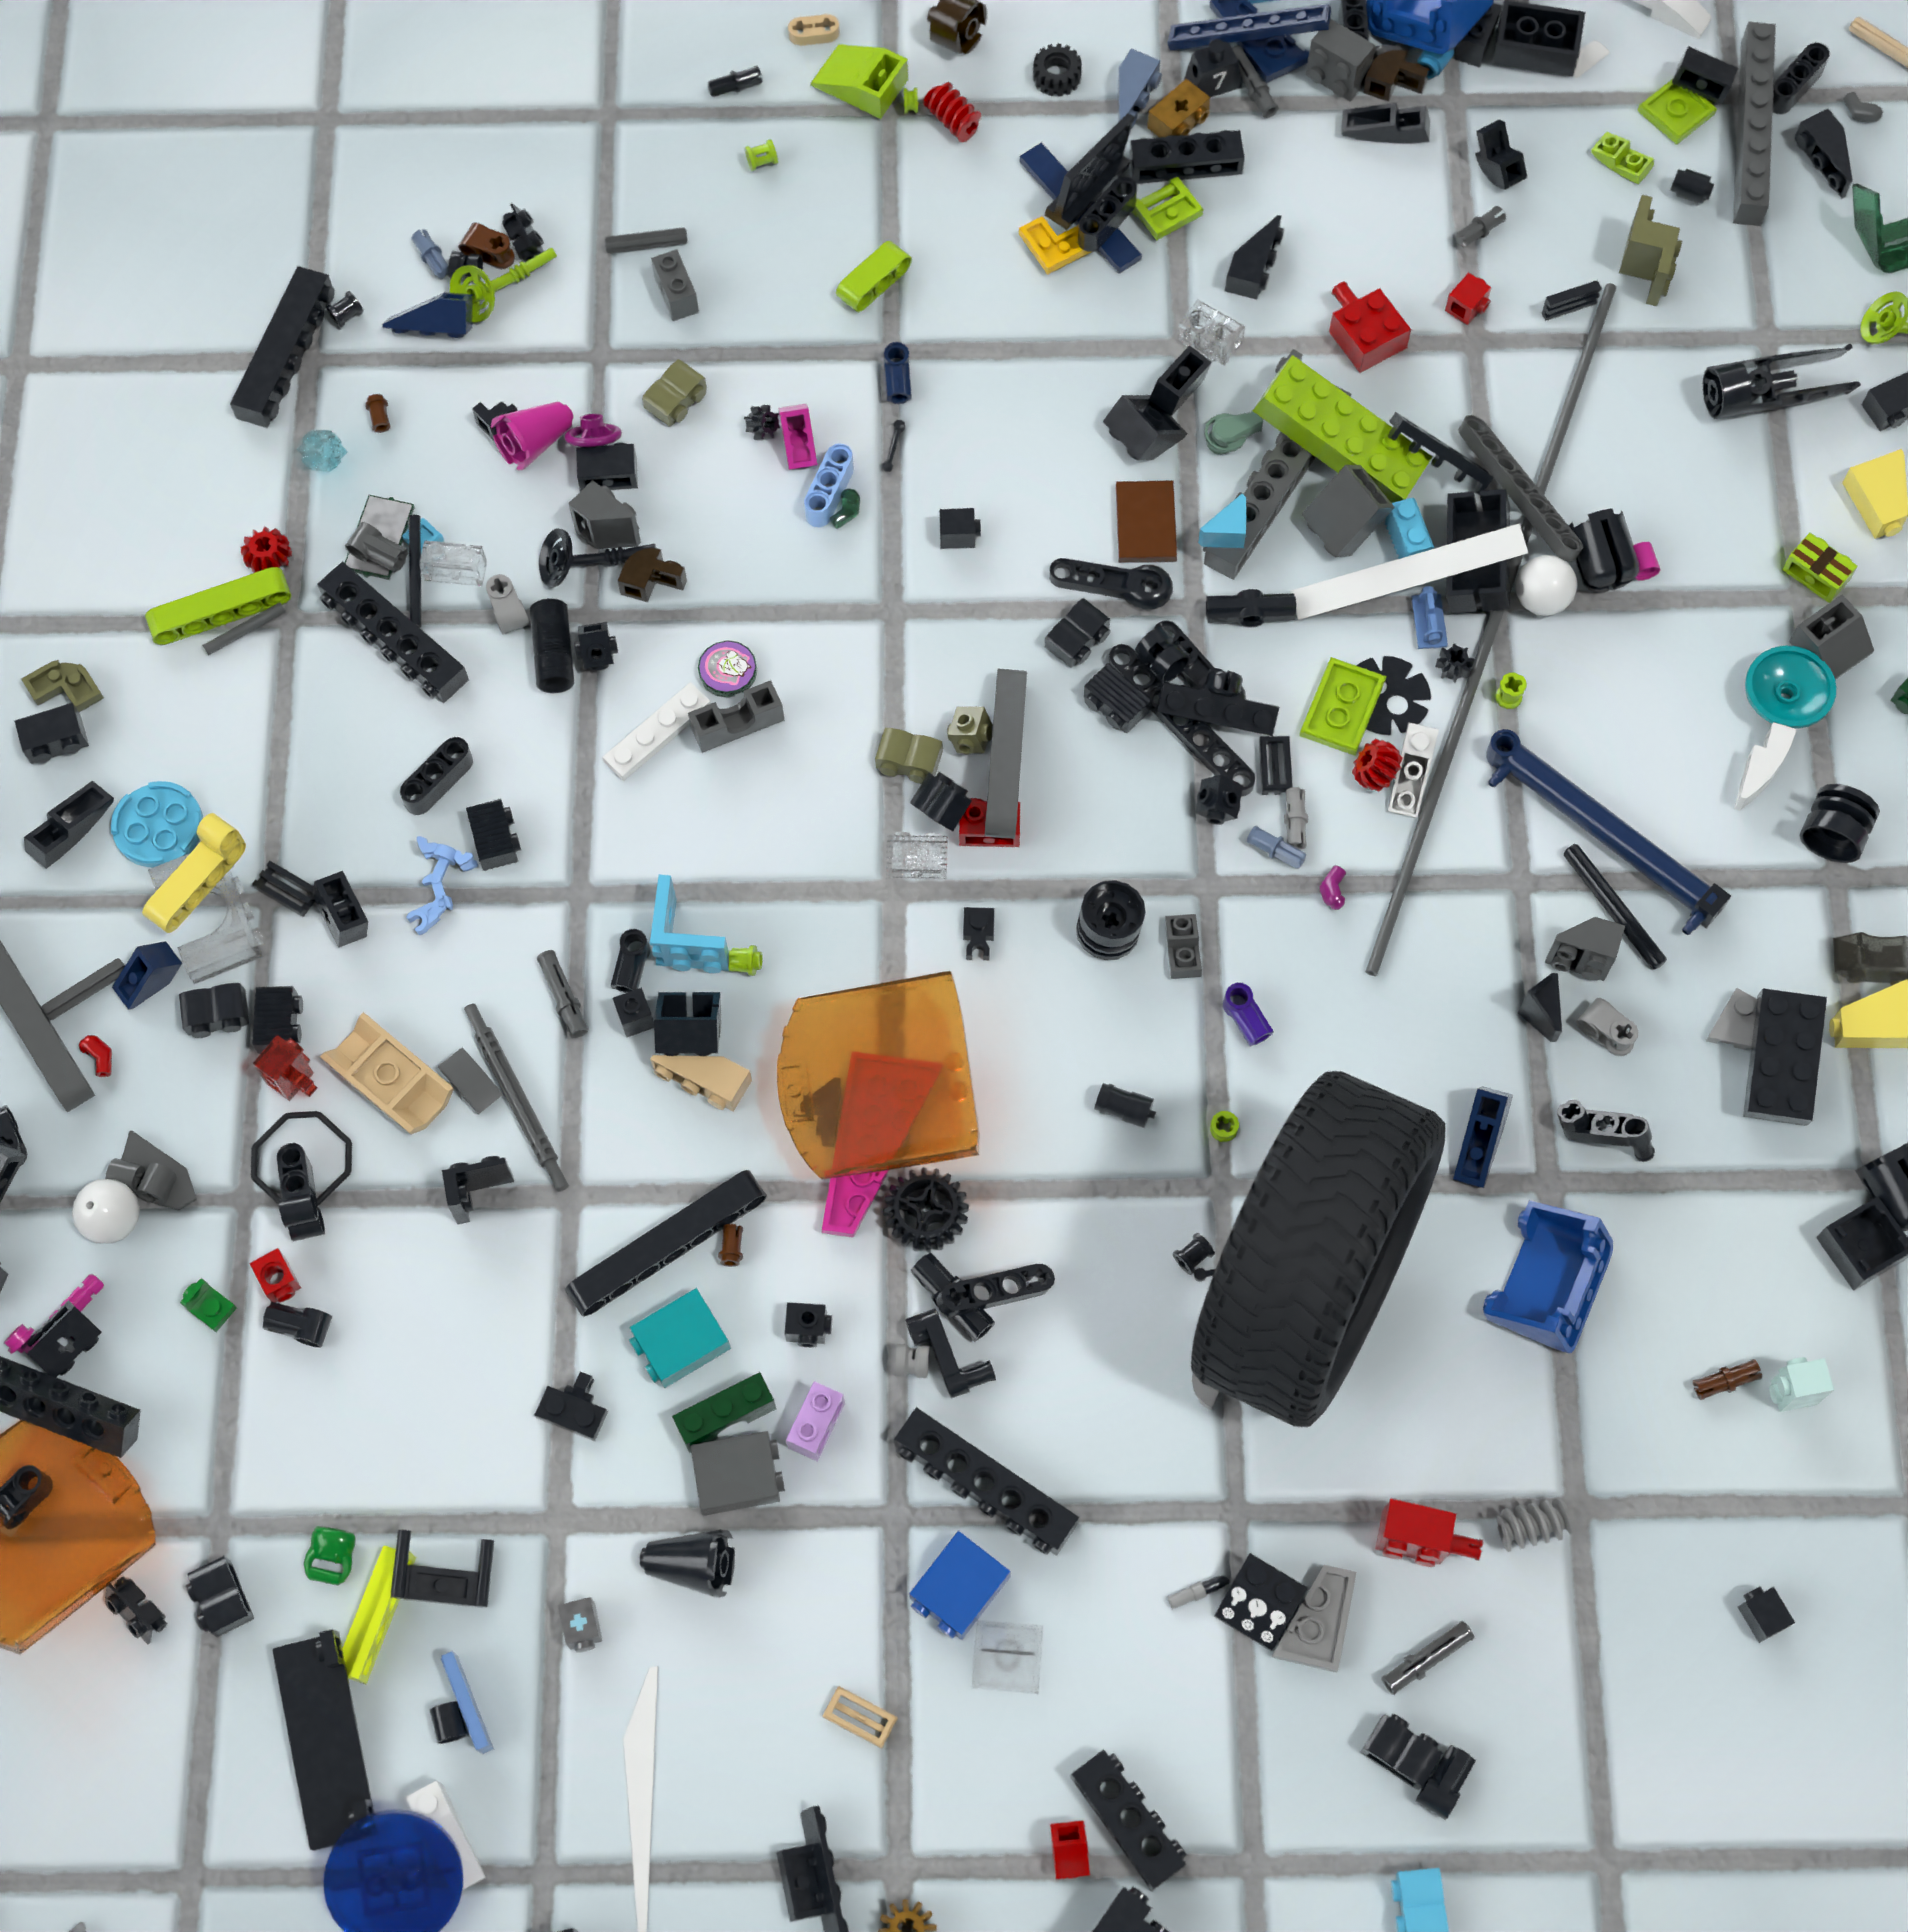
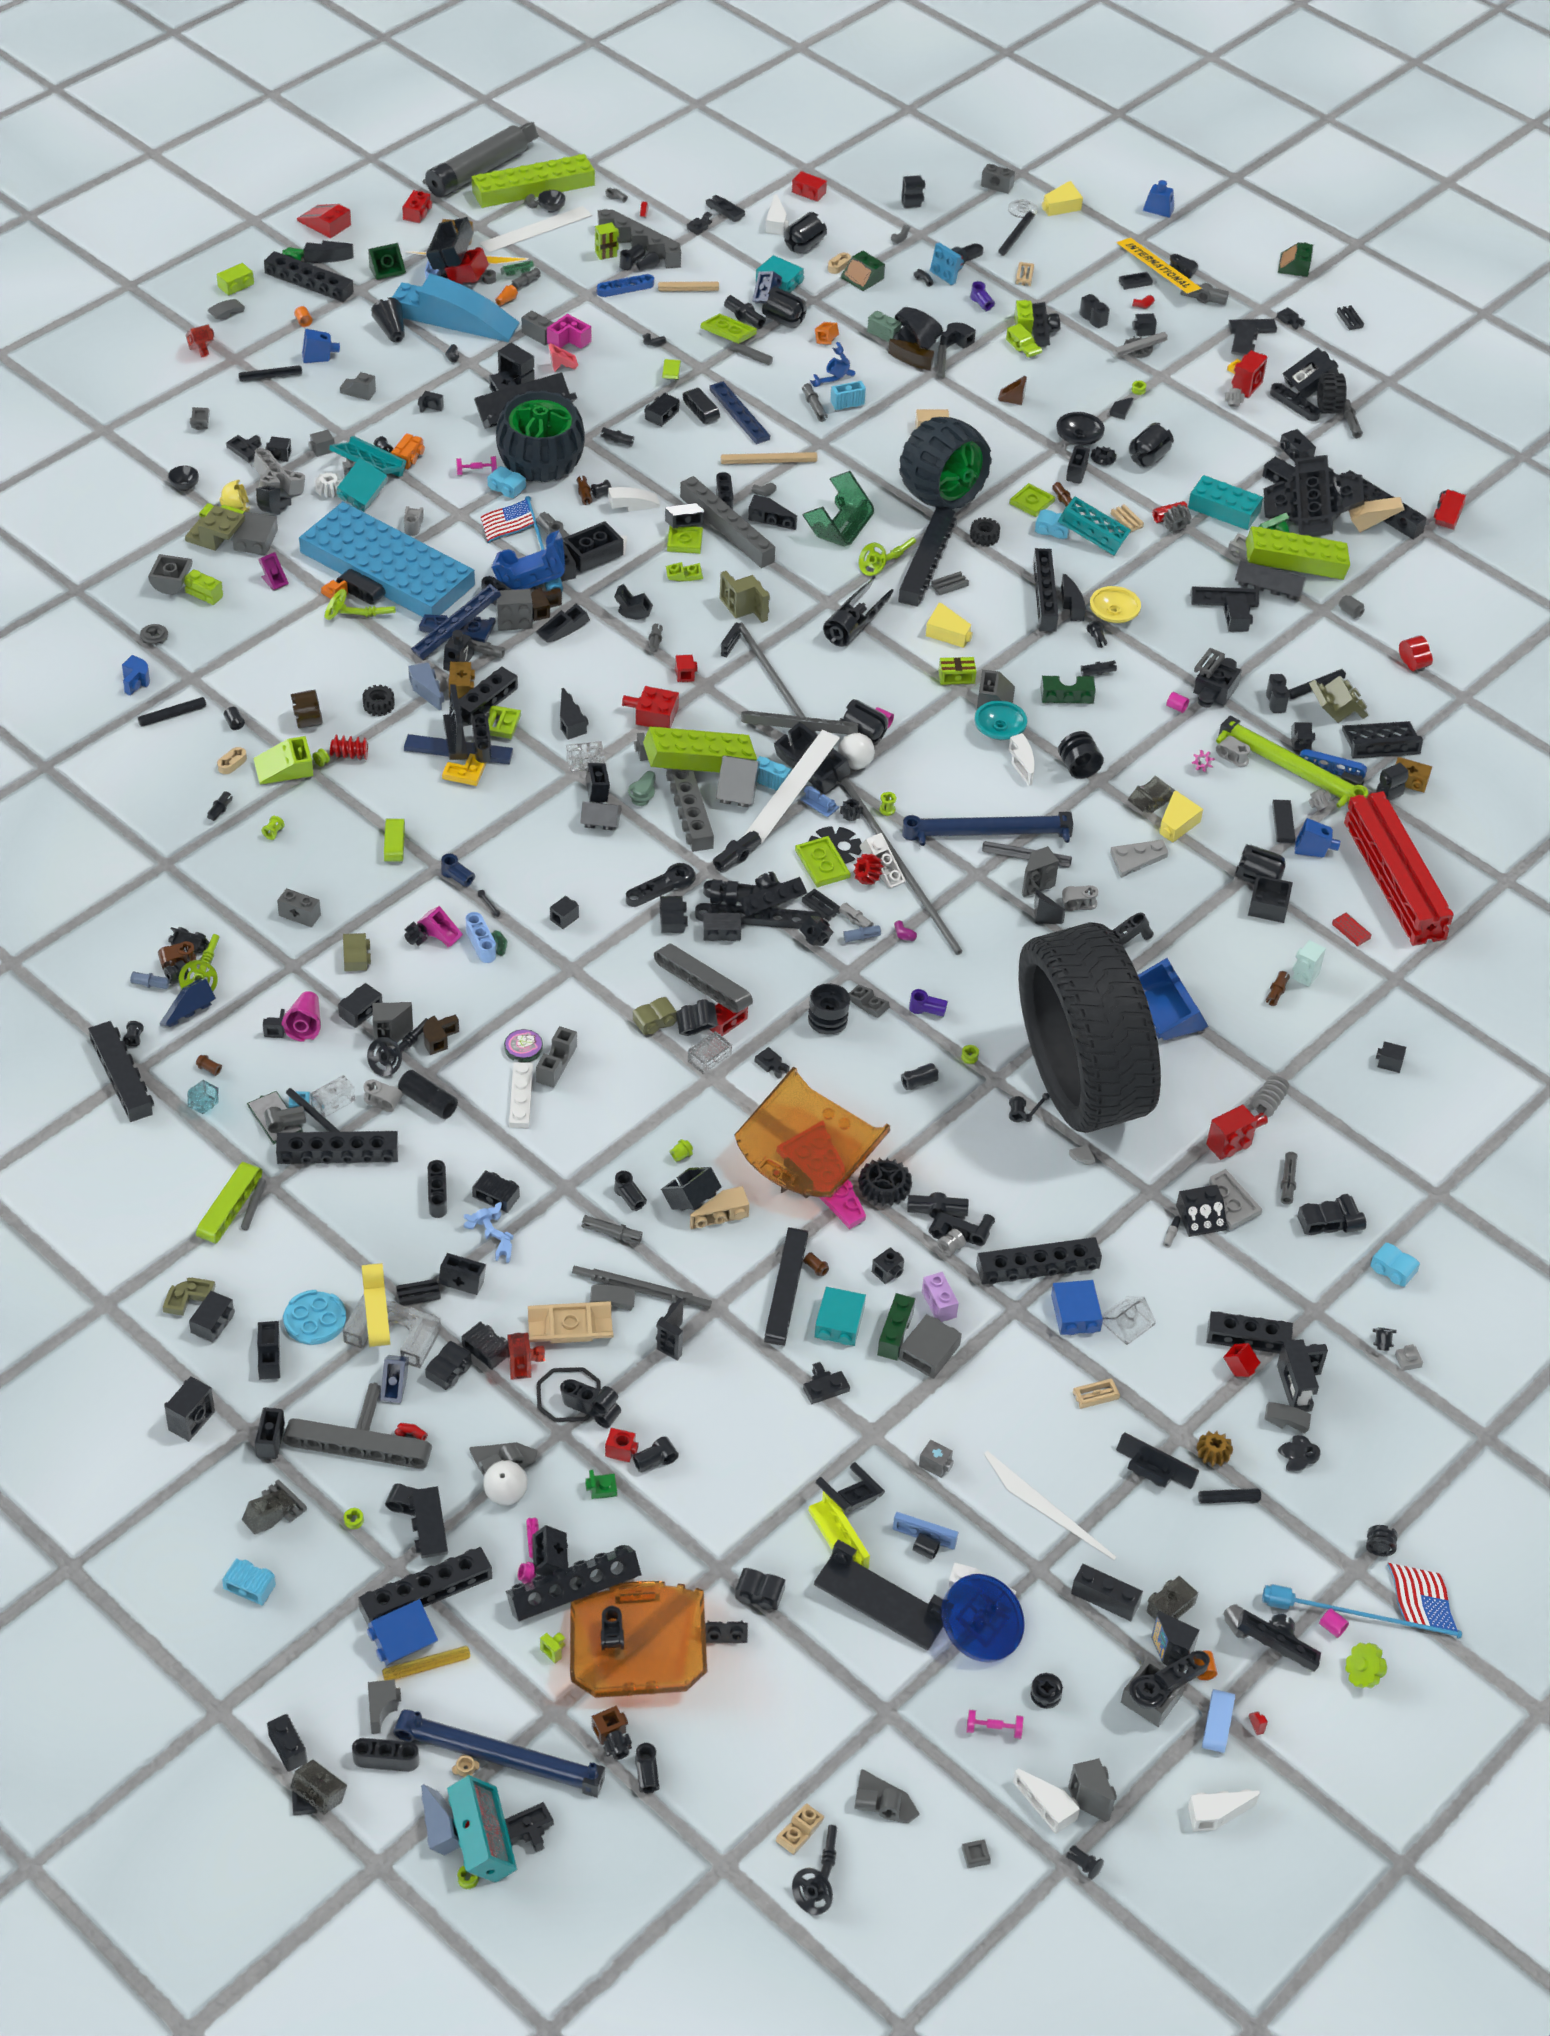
camera: 50 degrees left, 20 degrees down
(266, 550) = (224, 1161): red gear -> none
(332, 1546) = (785, 1526): green piece -> none
(593, 432) = (336, 993): magenta piece -> none
(596, 646) = (451, 1077): black brick -> none
(634, 1012) = (660, 1205): black brick -> none
(646, 240) = (256, 901): dark grey axle -> none
(682, 950) = (642, 1166): medium azure bracket -> none
(692, 1561) = (955, 1391): black cone -> none
(970, 730) = (675, 987): olive brick -> none
(997, 1293) = (954, 1184): black beam -> none
(1146, 521) = (646, 851): reddish brown tile -> none
(1227, 527) = (696, 819): medium azure slope -> none
(1442, 451) = (751, 728): black hinge -> none
(1692, 185) = (729, 562): black brick -> none
(1785, 1057) = (1162, 853): black brick -> none

